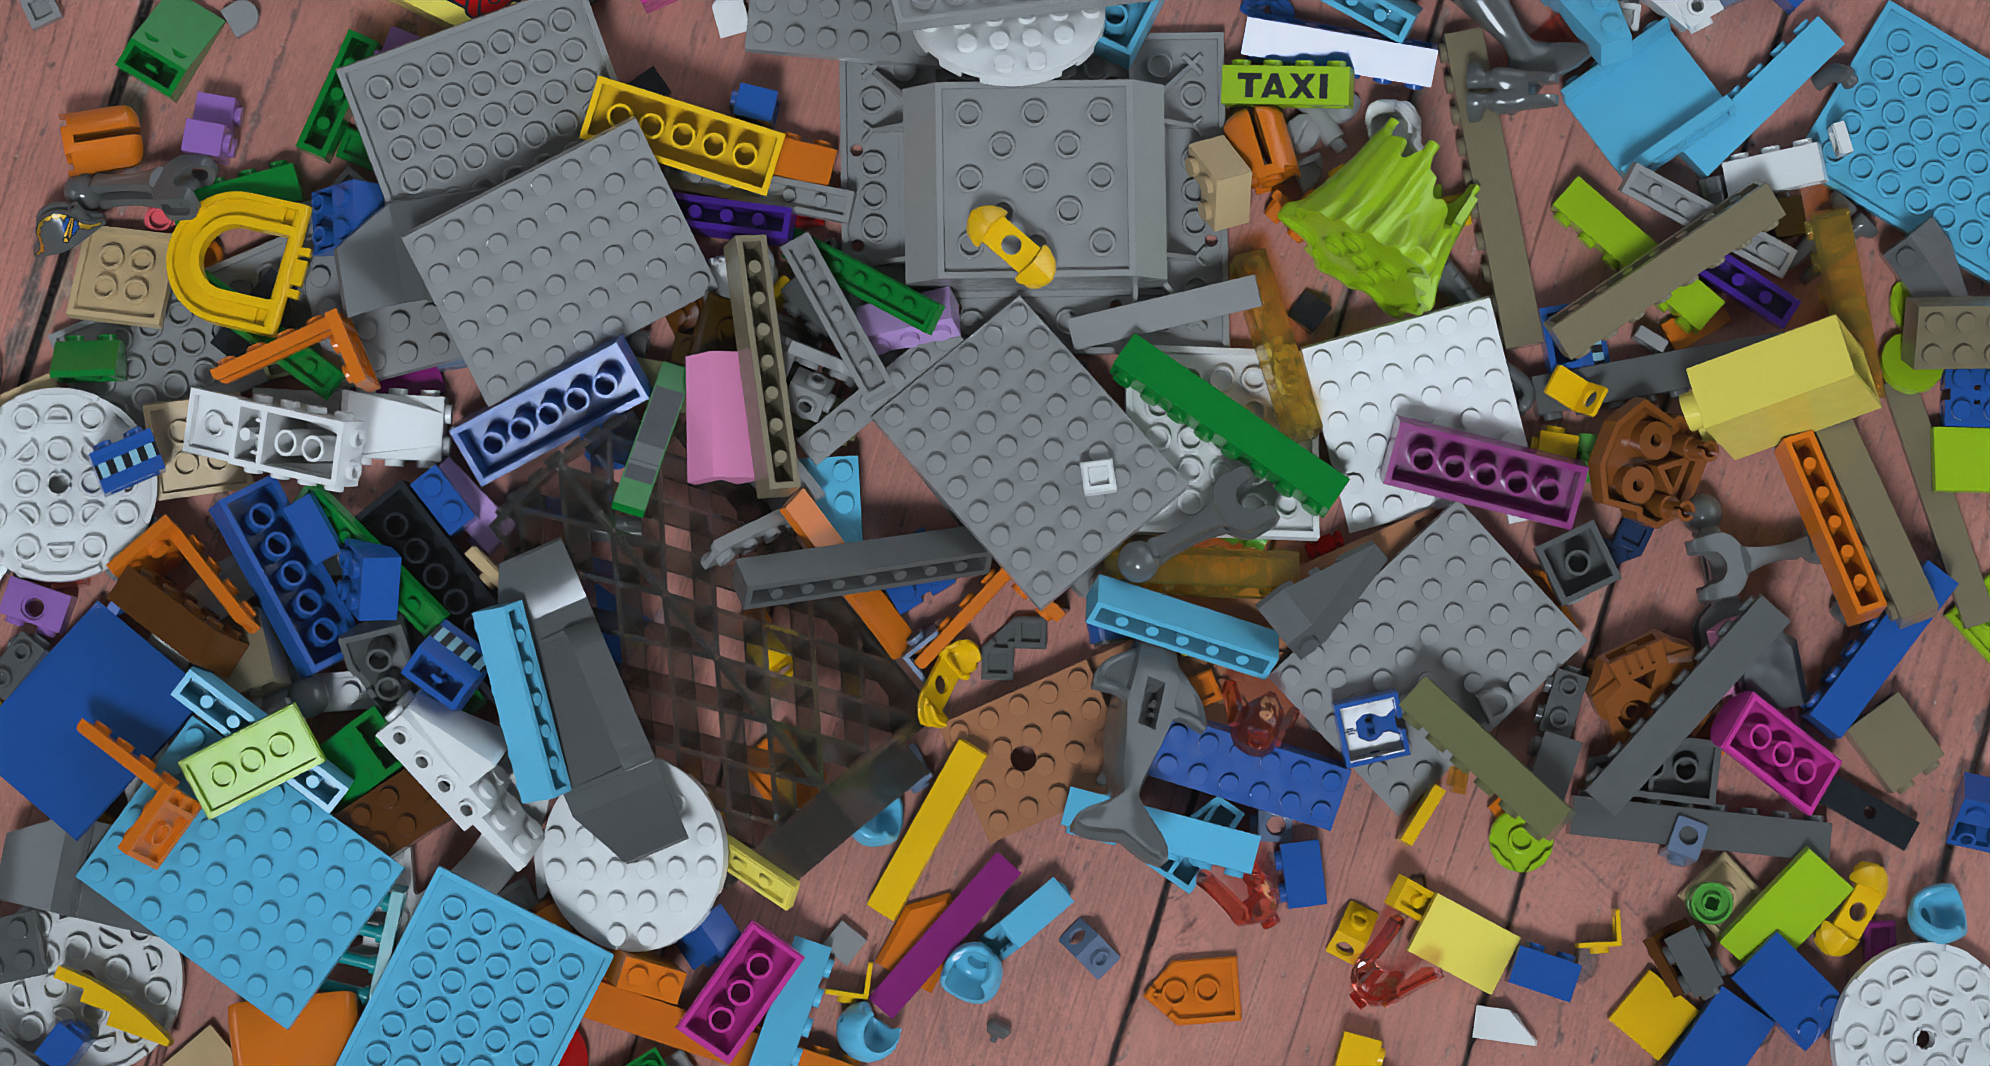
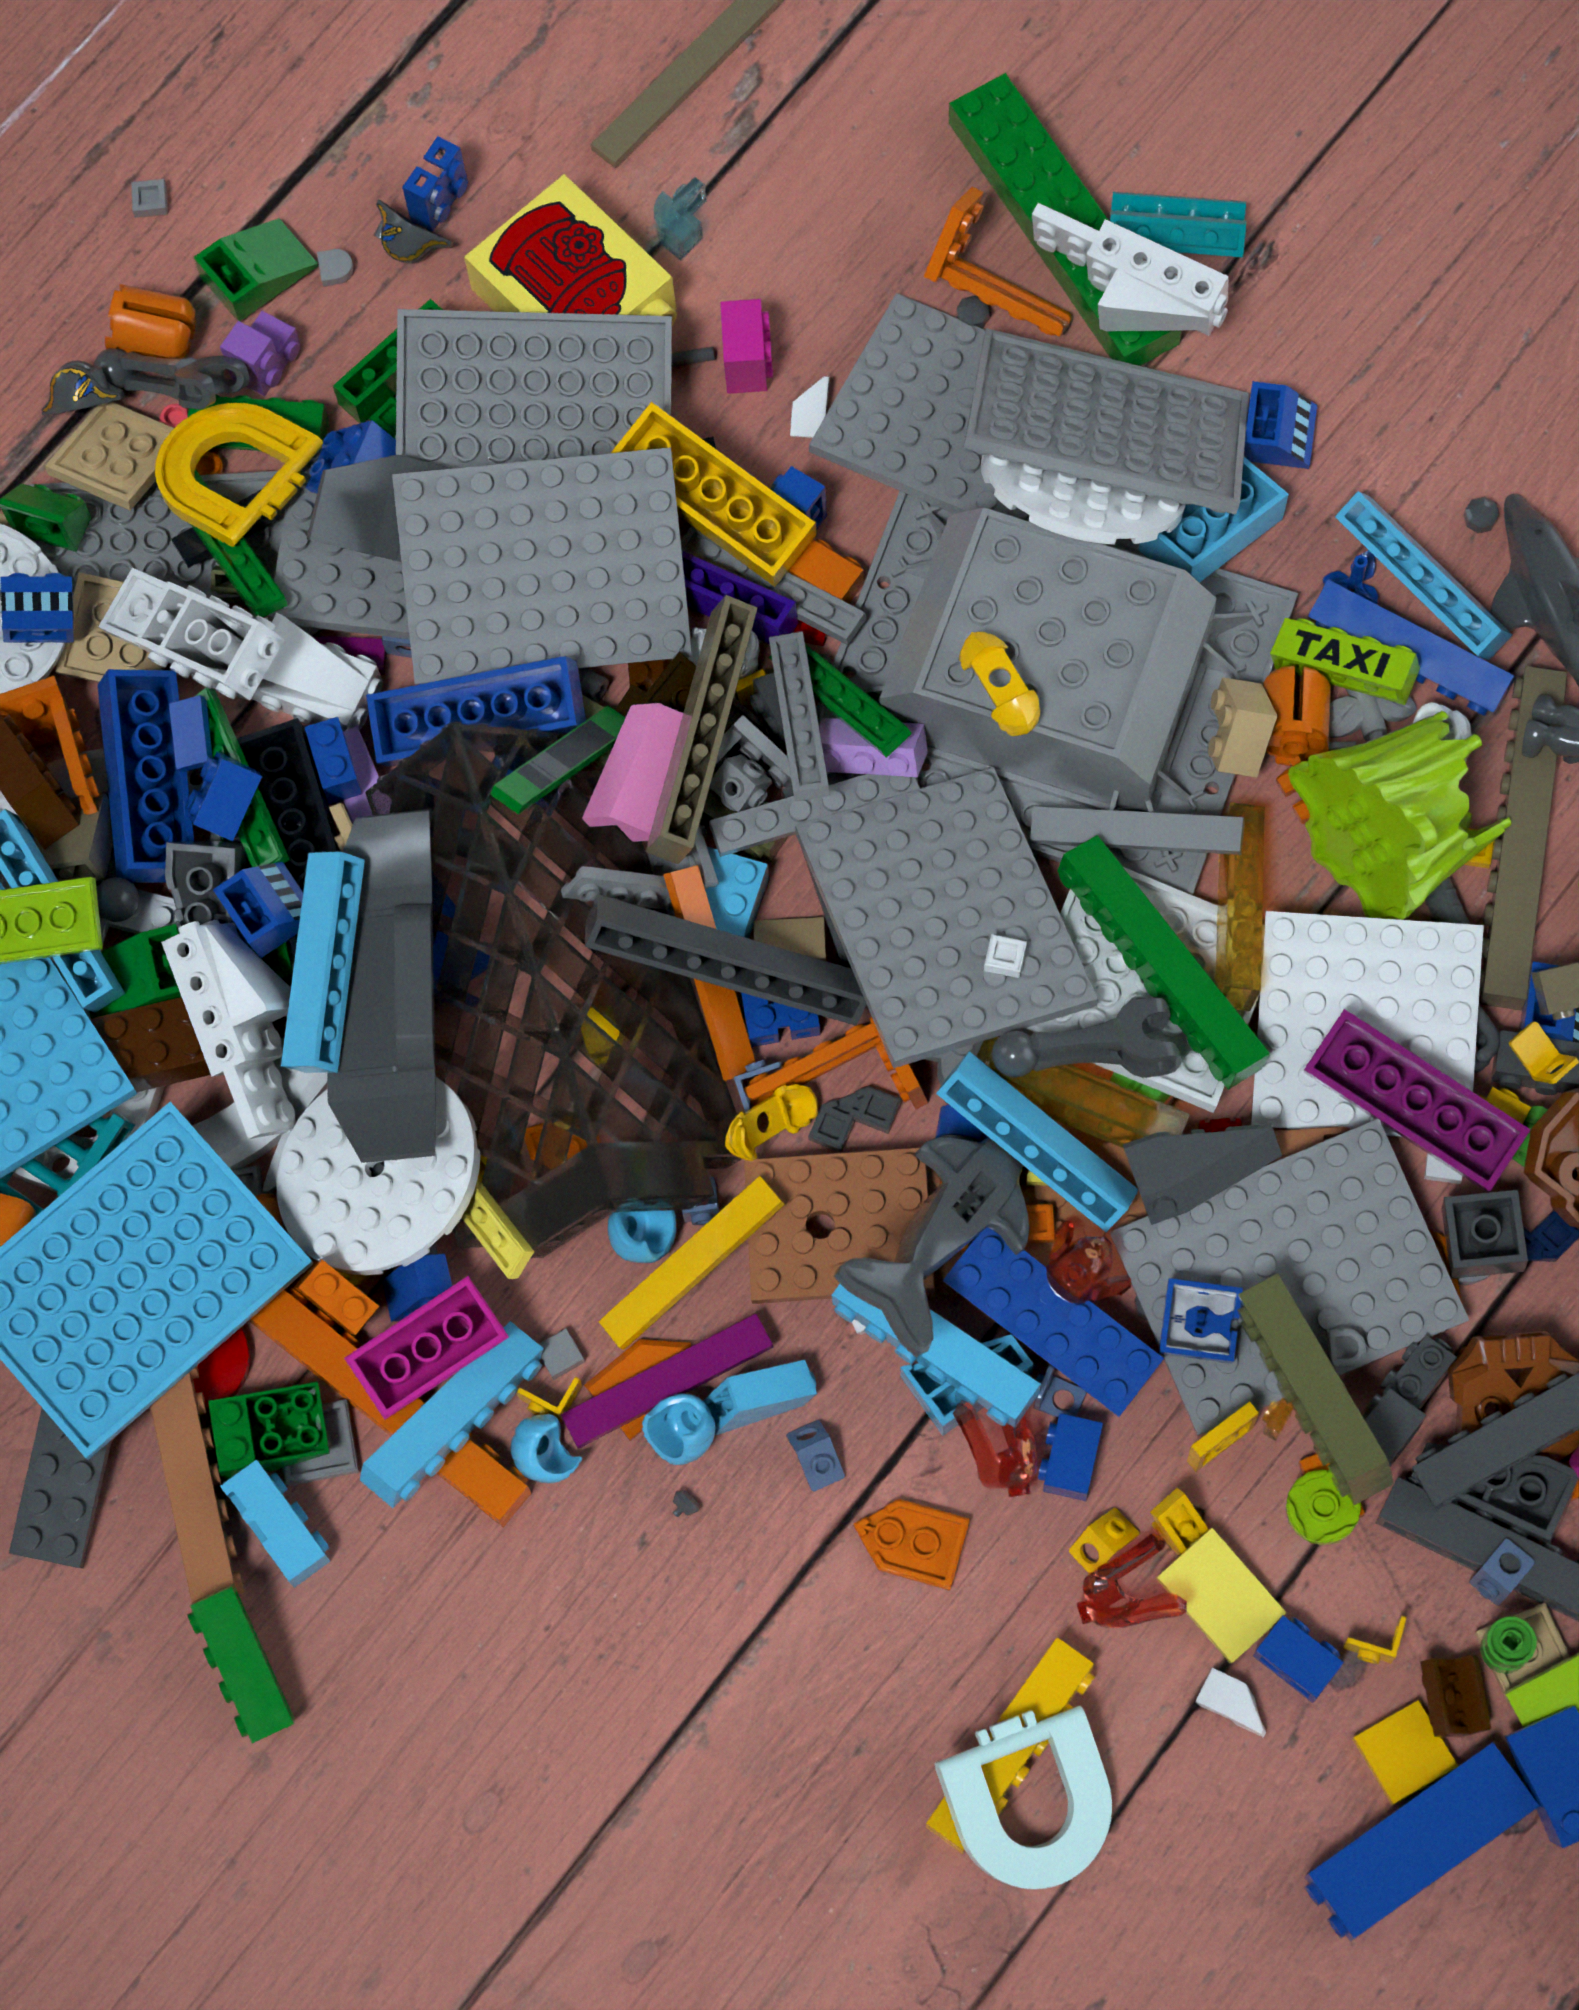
camera: 30 degrees right, 15 degrees down
(334, 326) = (250, 550): orange bracket -> none
(902, 512) = (796, 935): none -> tan tile
(1309, 311) = (1289, 893): black slope -> none
(1699, 972) = (1471, 1711): dark grey brick -> none

